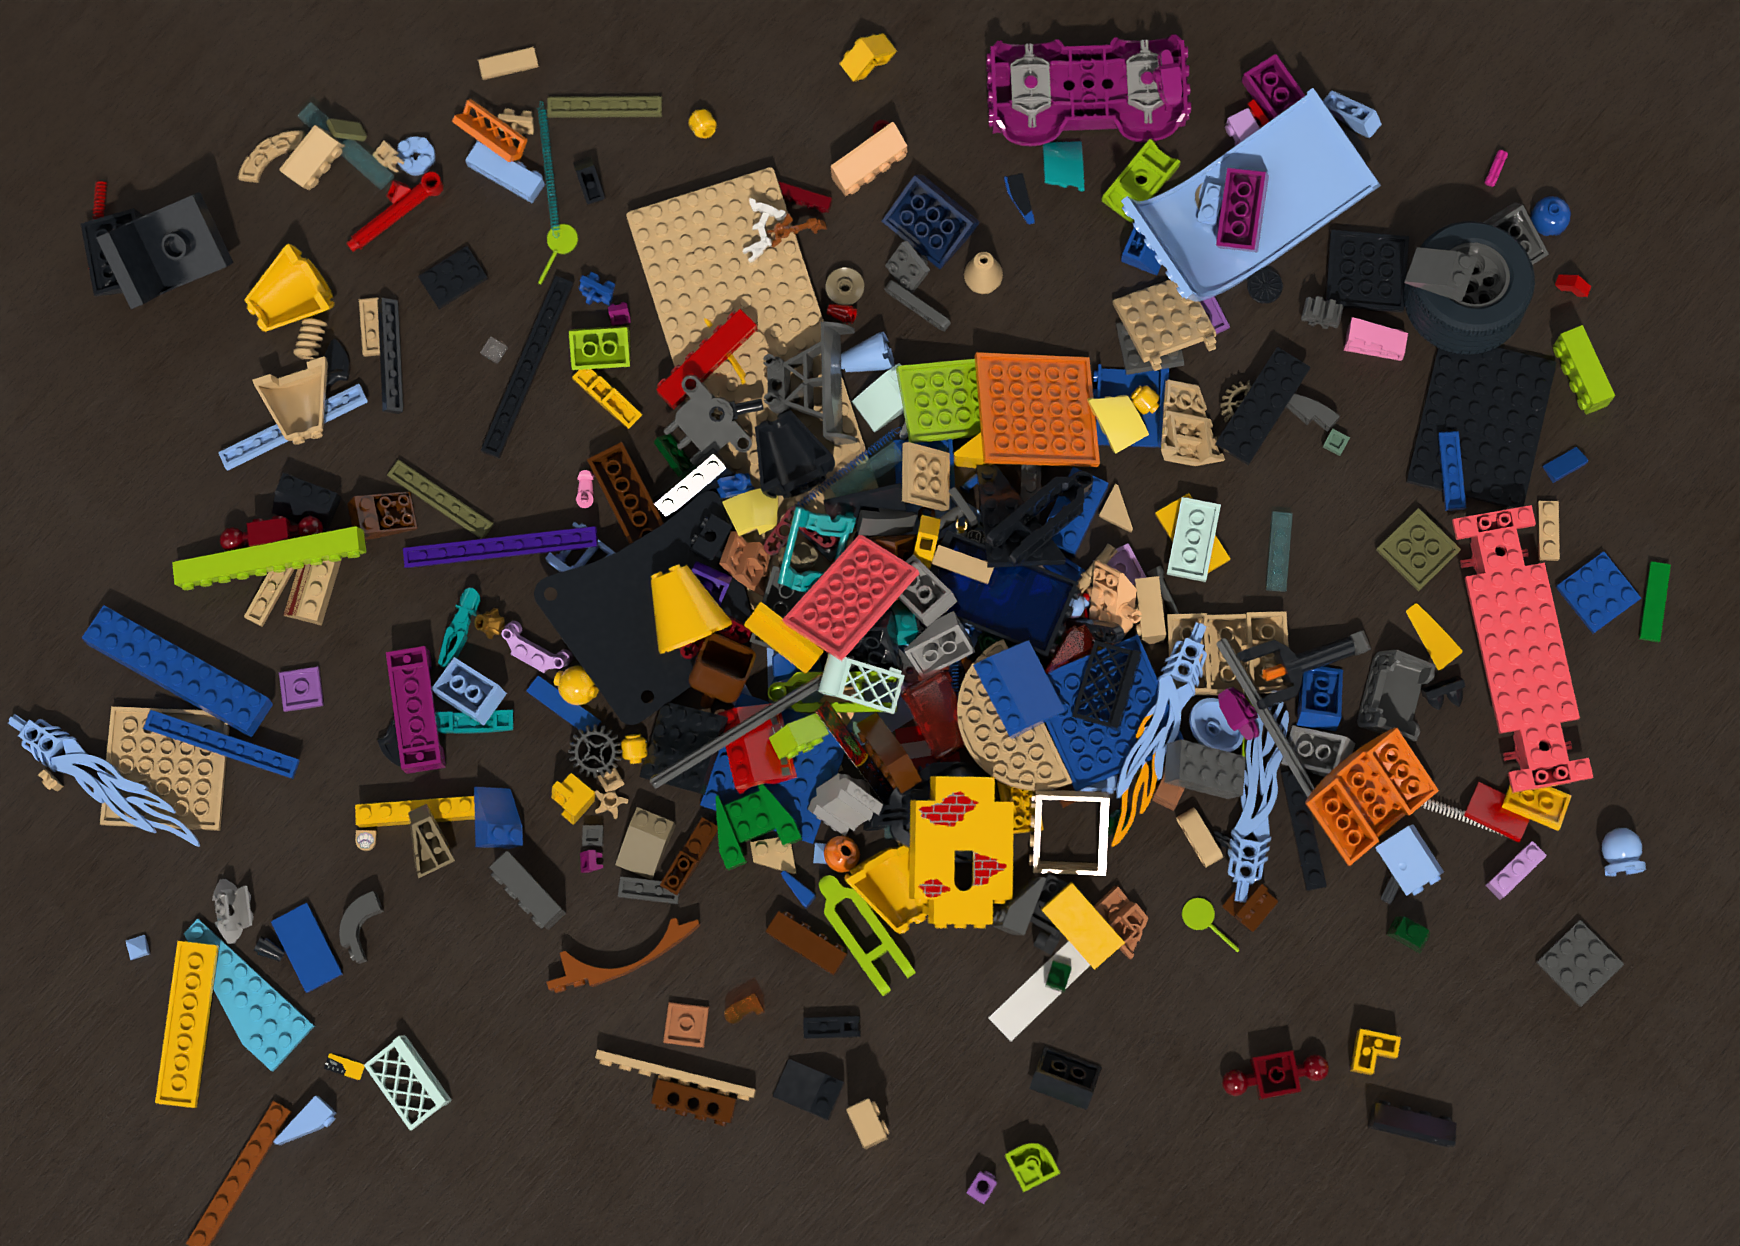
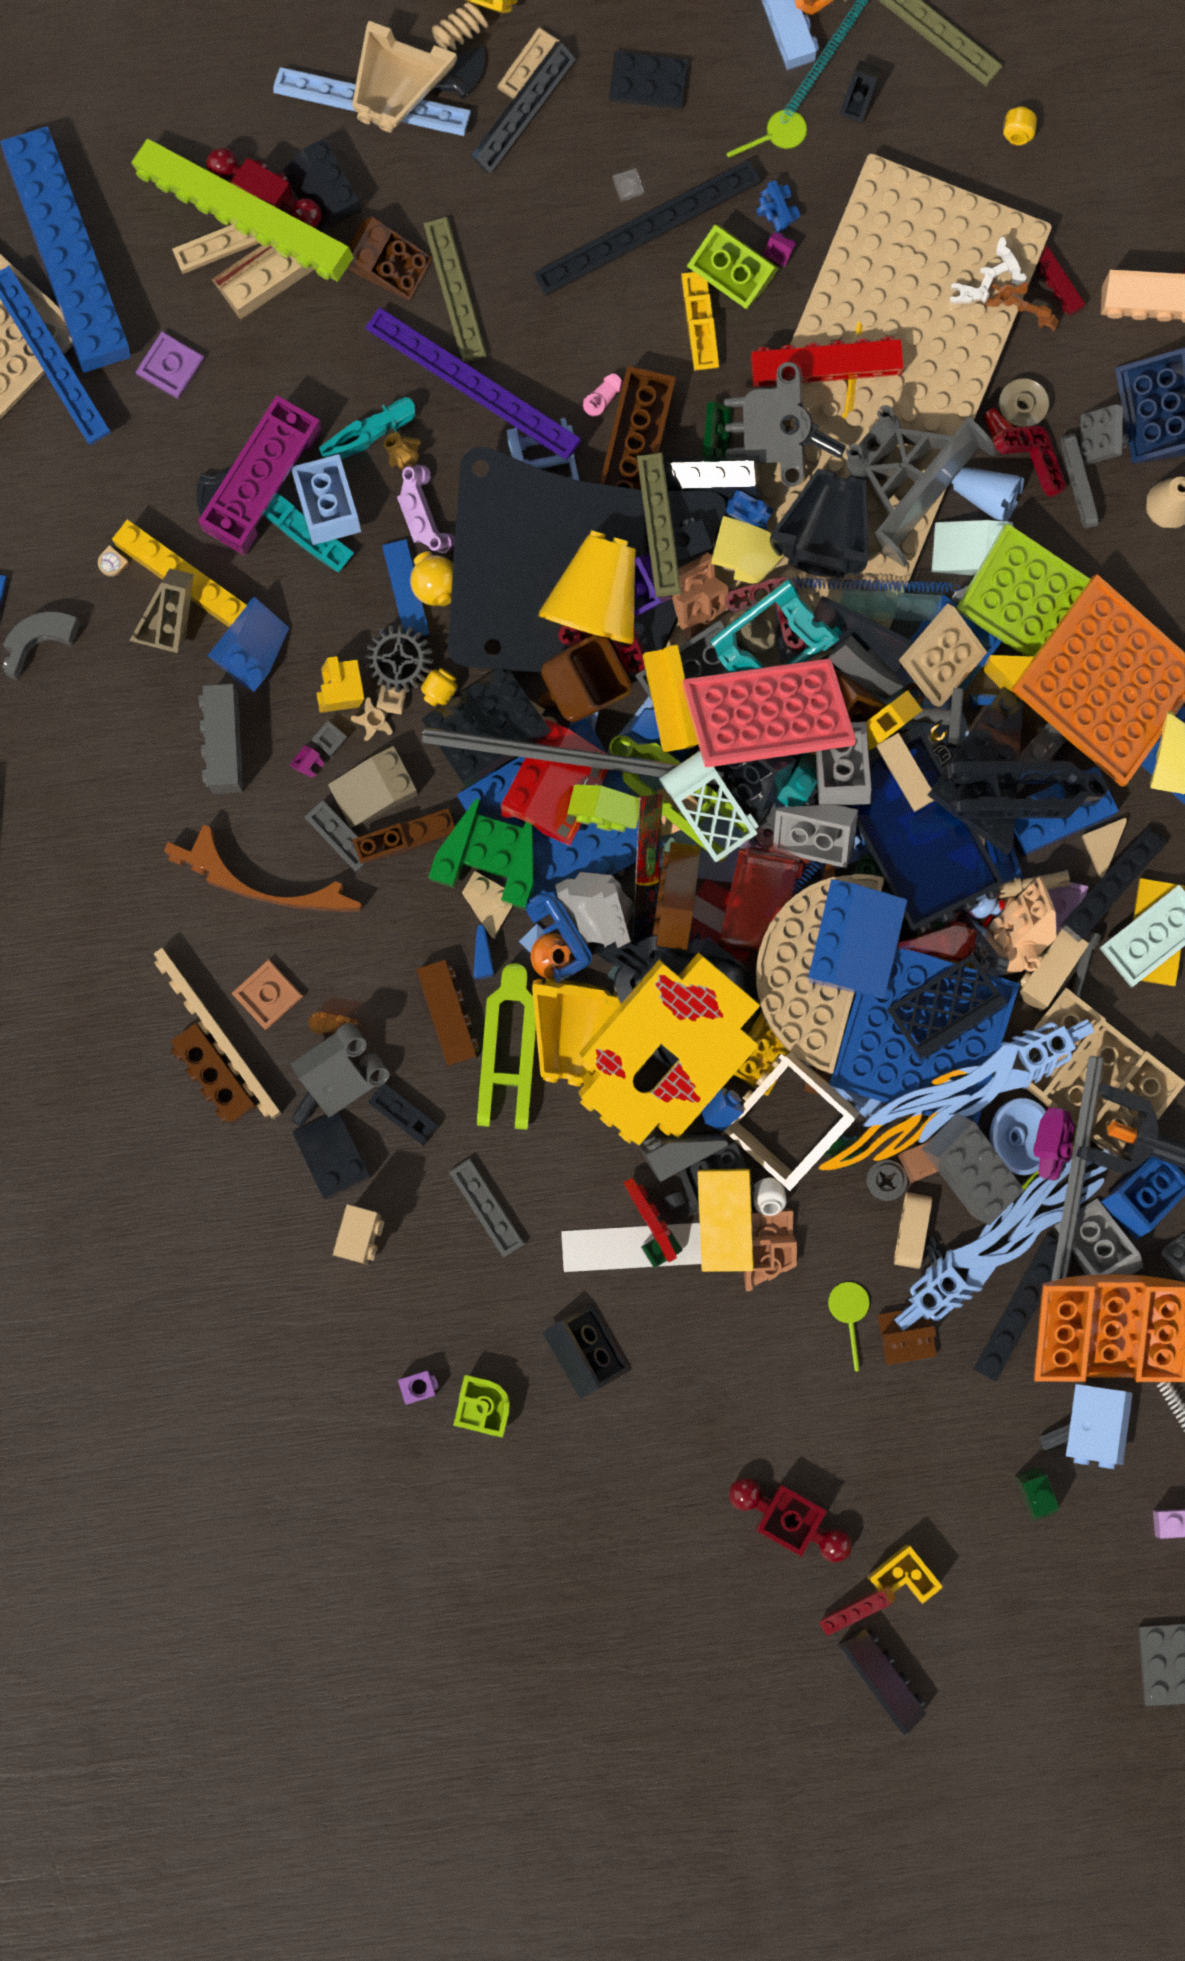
camera: 30 degrees right, 5 degrees up
(688, 538) = (659, 525): none -> olive tile
(769, 1039) = (333, 1076): none -> dark grey piece
(840, 831) = (569, 933): none -> blue piece
(877, 305) = (1039, 448): none -> dark red beam
(931, 1042) = (486, 1208): none -> dark grey tile
(1024, 859) = (723, 1109): none -> blue brick
(1033, 960) = (649, 1213): none -> red wing
(1096, 889) = (769, 1196): none -> white head
(1142, 529) = (1113, 884): none -> black plate
(1166, 815) = (887, 1168): none -> dark grey gear
(1362, 1095) = (857, 1610): none -> dark red piece

